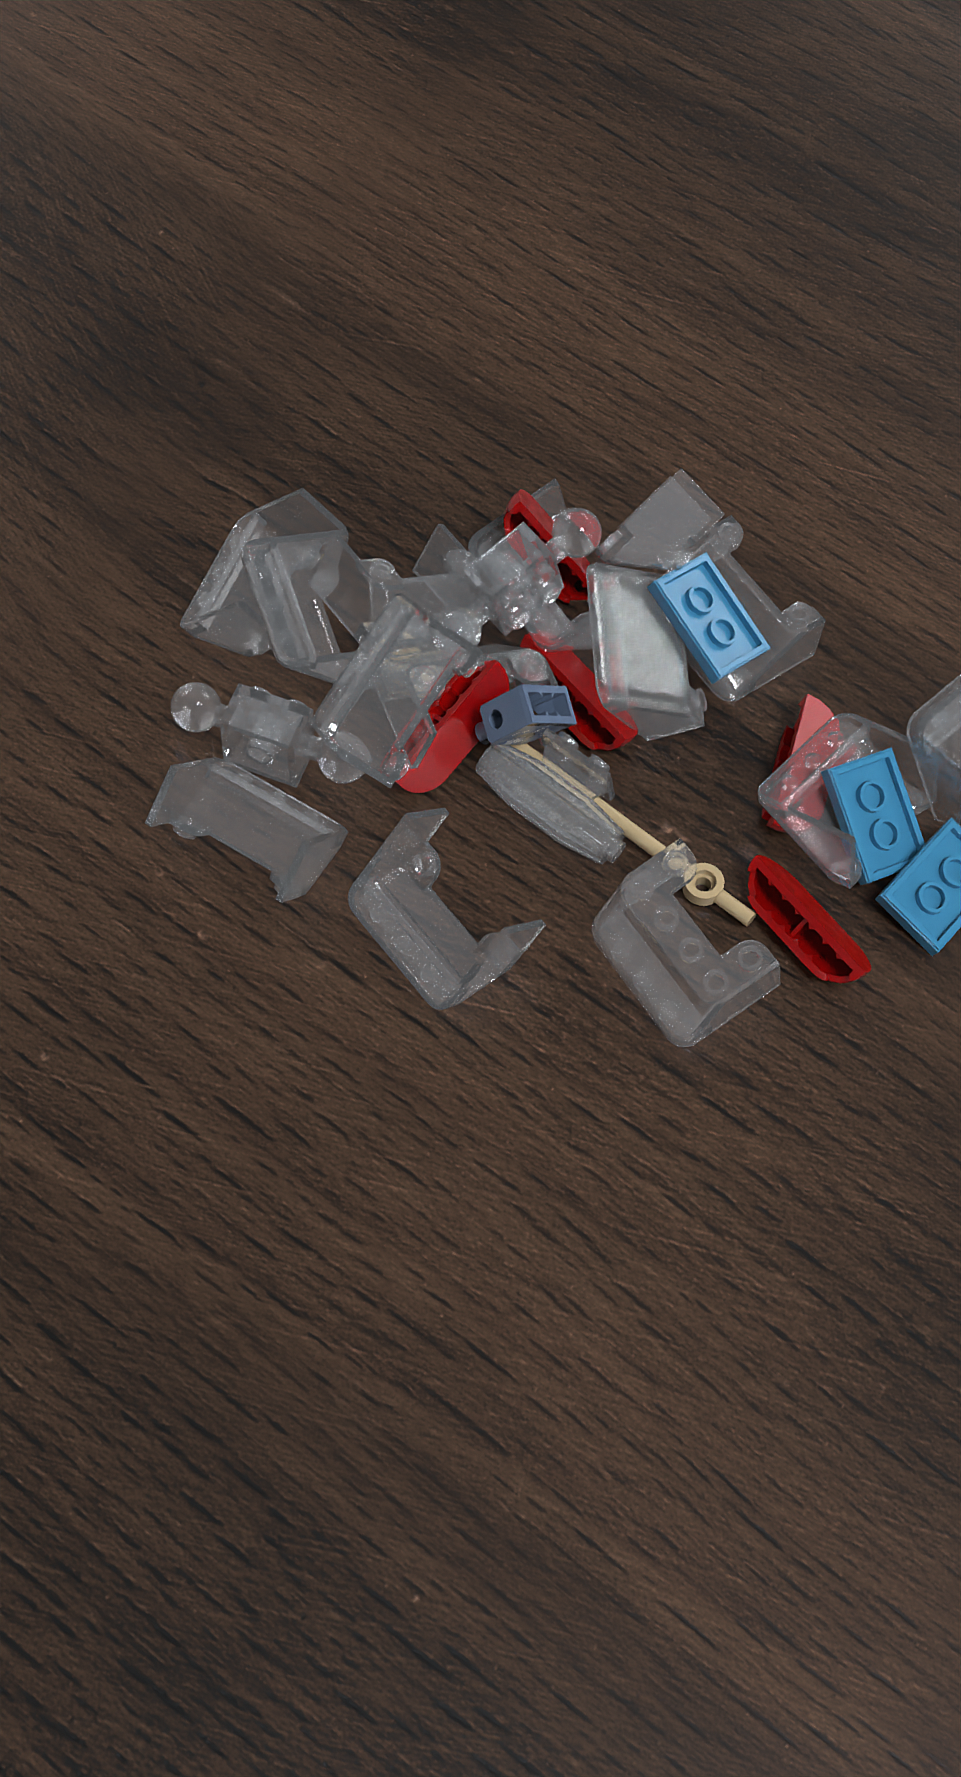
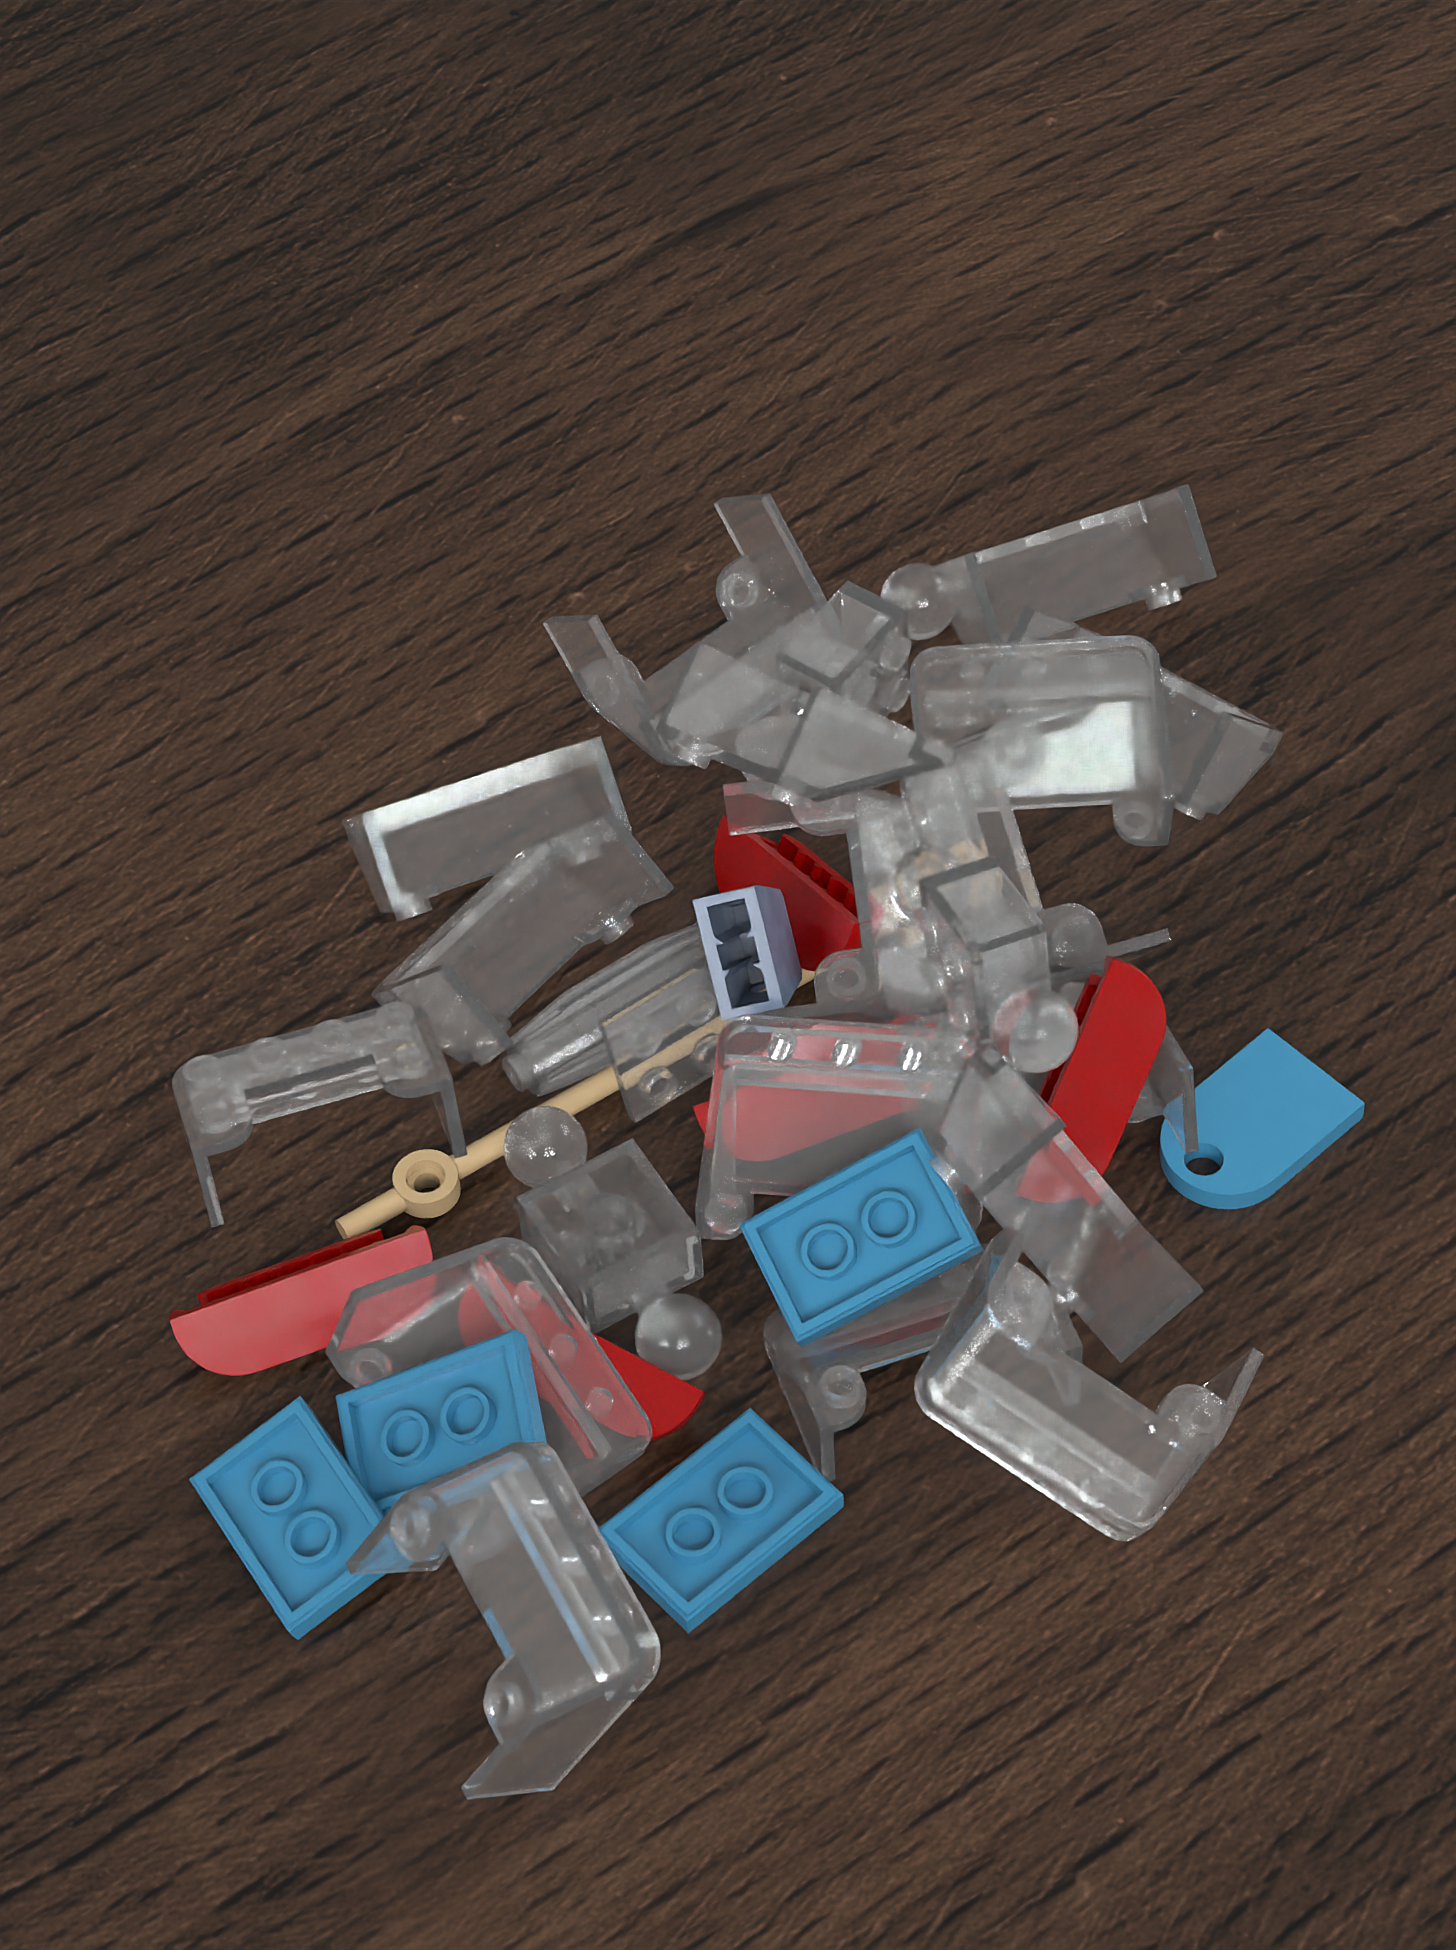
camera: 115 degrees right, 10 degrees down
(124, 646) = (1082, 567): none -> clear windscreen
(506, 475) = (1260, 1123): none -> dark azure tile
(509, 893) = (522, 931): none -> clear windscreen
(717, 769) = (613, 1238): none -> clear brick
(767, 520) = (1056, 1418): none -> clear windscreen
(857, 686) = (720, 1519): none -> dark azure tile

